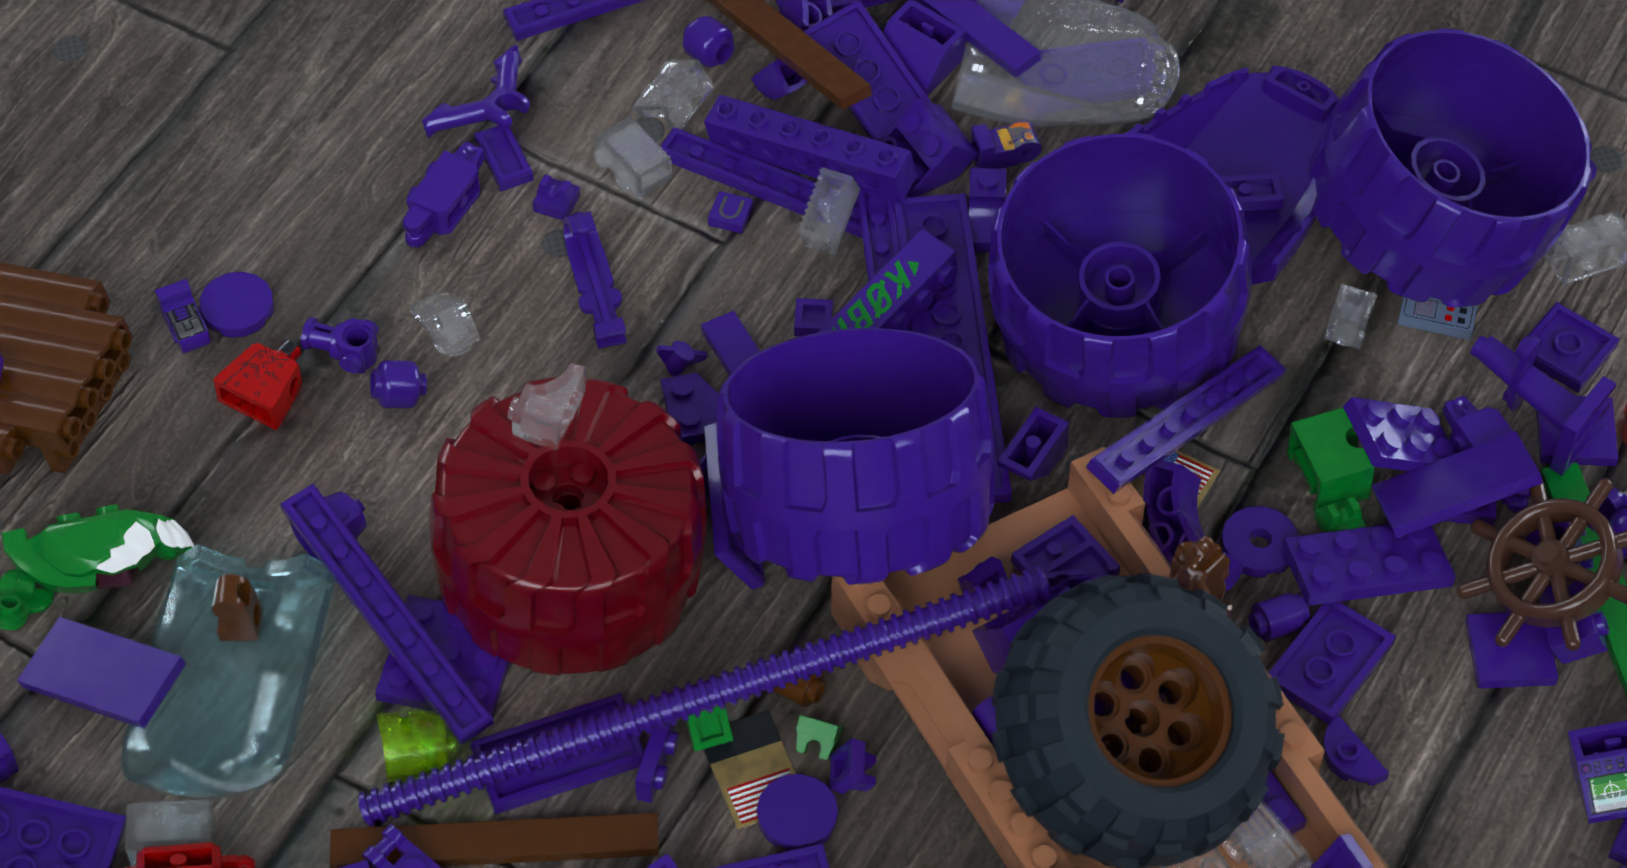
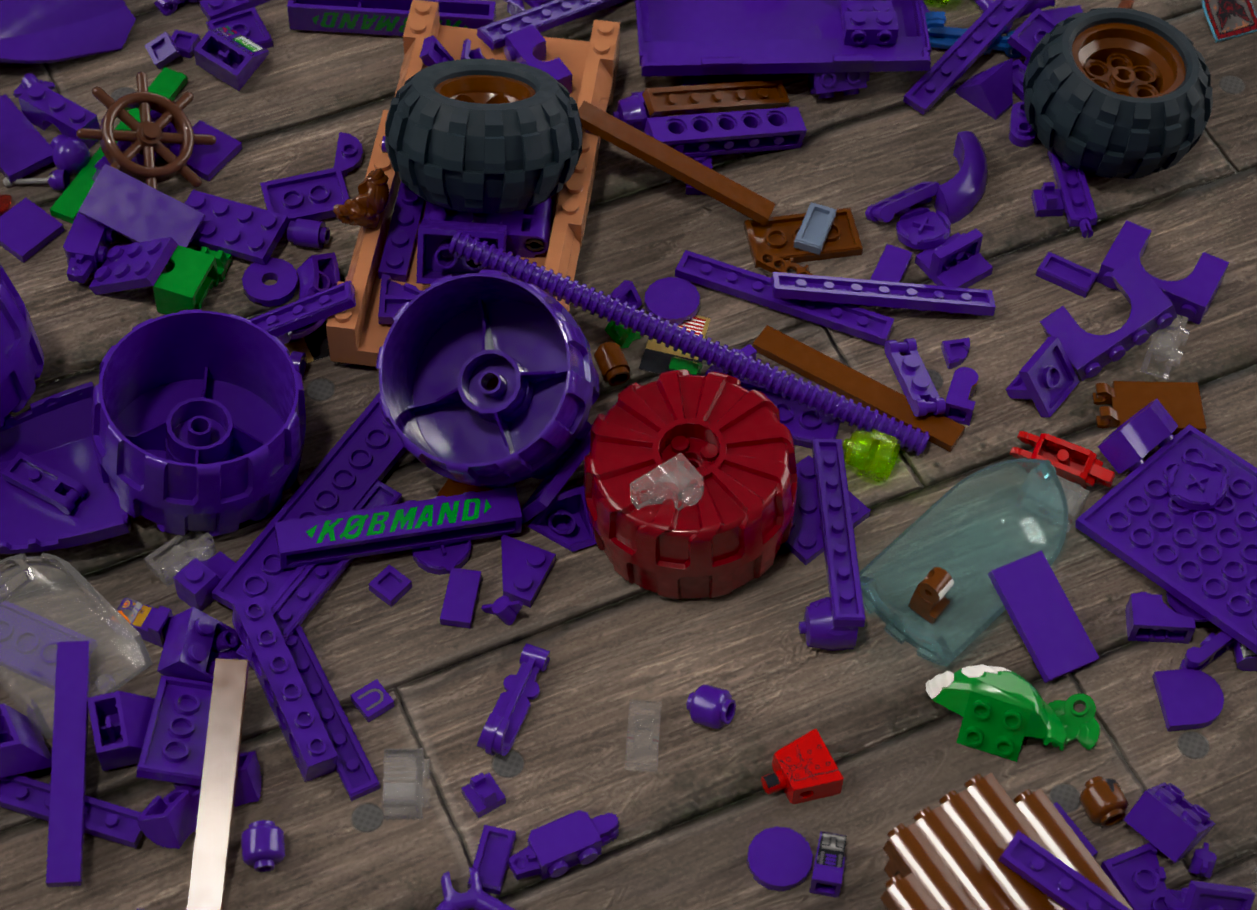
camera: 145 degrees left, 0 degrees up
(350, 342) = (725, 768): dark purple connector -> none
(675, 92) = (326, 825): clear bracket -> none
(828, 211) = (318, 629): clear brick -> none
(1036, 446) = (348, 392): dark purple slope -> none
(1350, 316) = (69, 362): clear brick -> none
(1572, 415) = (30, 205): dark purple piece -> none

